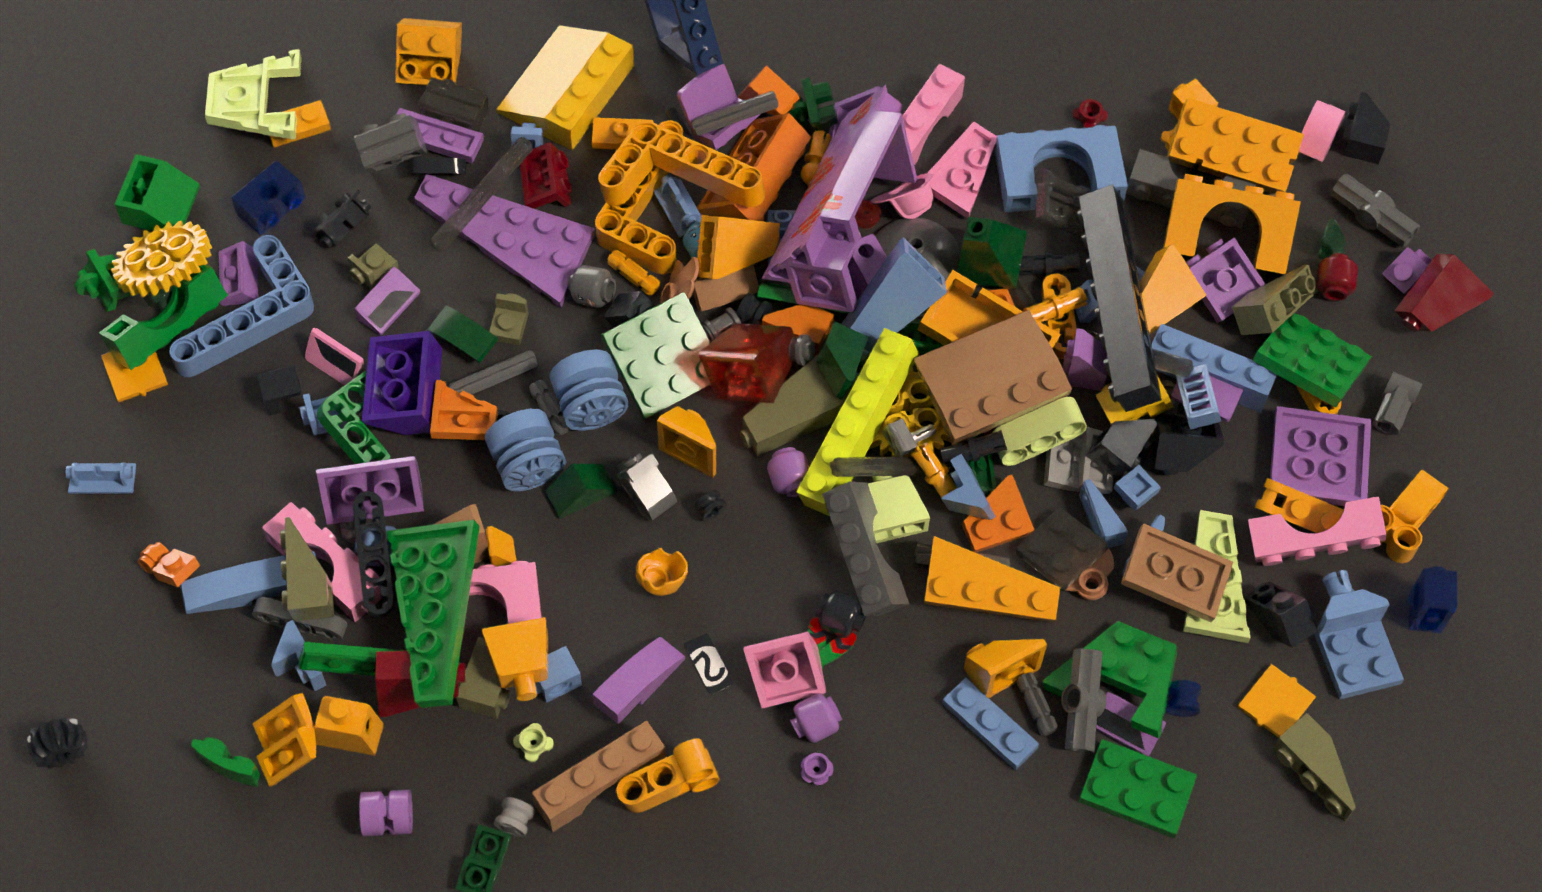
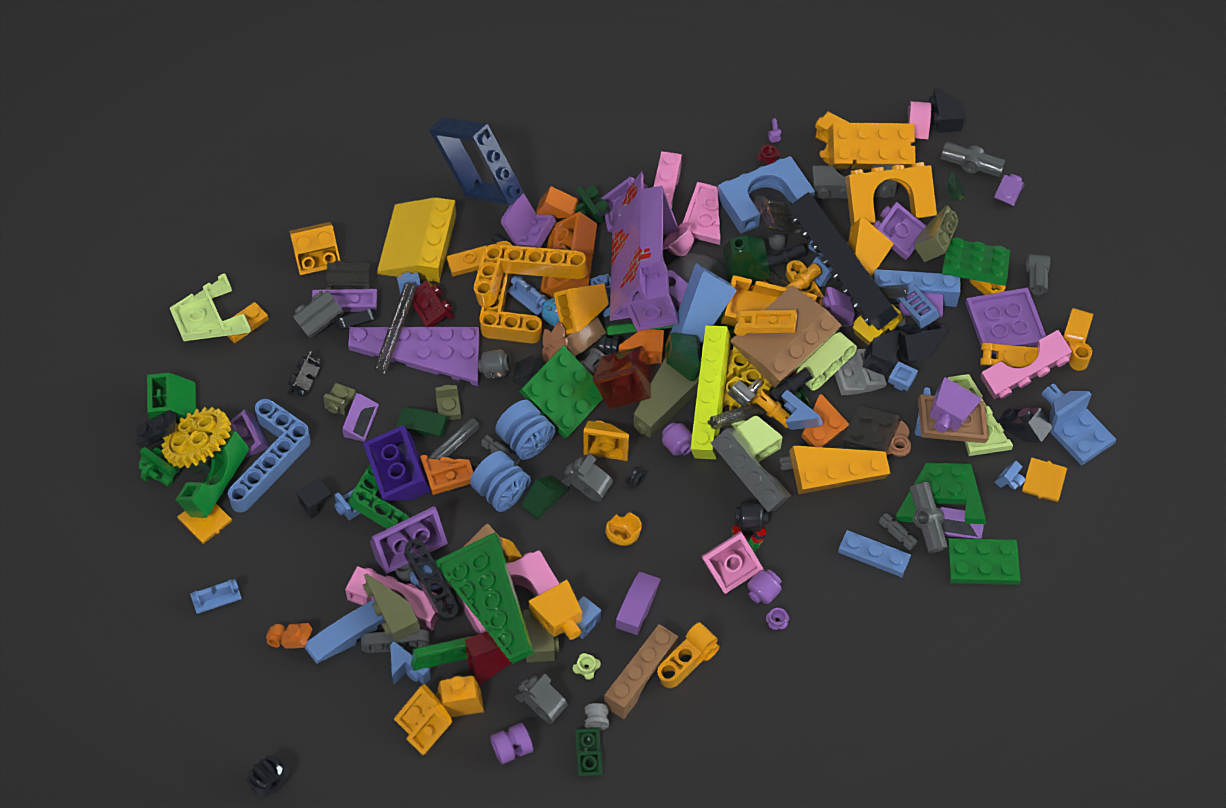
camera: 20 degrees left, 5 degrees down
(120, 229) = (156, 428): none -> black plate
(218, 758) = (377, 748): green slope -> none
(273, 182) = (249, 364): clear blue brick -> none
(333, 357) = (341, 466): bright pink slope -> none
(452, 766) = (541, 697): none -> dark grey pin
(633, 272) = (516, 346): light orange axle -> none
(709, 663) = (678, 578): sticker -> none
(735, 113) = (542, 223): dark grey axle -> none
(802, 349) = (653, 358): dark grey plate -> none
(815, 155) = (604, 236): light orange pin -> none
(968, 350) = (765, 321): none -> light orange plate
(1002, 662) = (867, 511): light orange slope -> none
(1048, 239) = (777, 241): none -> dark grey hinge
(1101, 515) = (887, 400): medium blue slope -> none
(1111, 88) = (774, 135): none -> medium lavender hand
(1179, 556) = (952, 406): none -> medium lavender torso
(1184, 698) = (989, 496): clear blue wheel -> none
(1227, 681) = (1010, 476): none -> medium blue tile
(1314, 758) = (1084, 505): olive slope -> none
(1337, 277) = (968, 207): dark red head -> none
(1433, 600) = (1114, 384): clear blue brick -> none
(1441, 294) = (1037, 197): dark red slope -> none

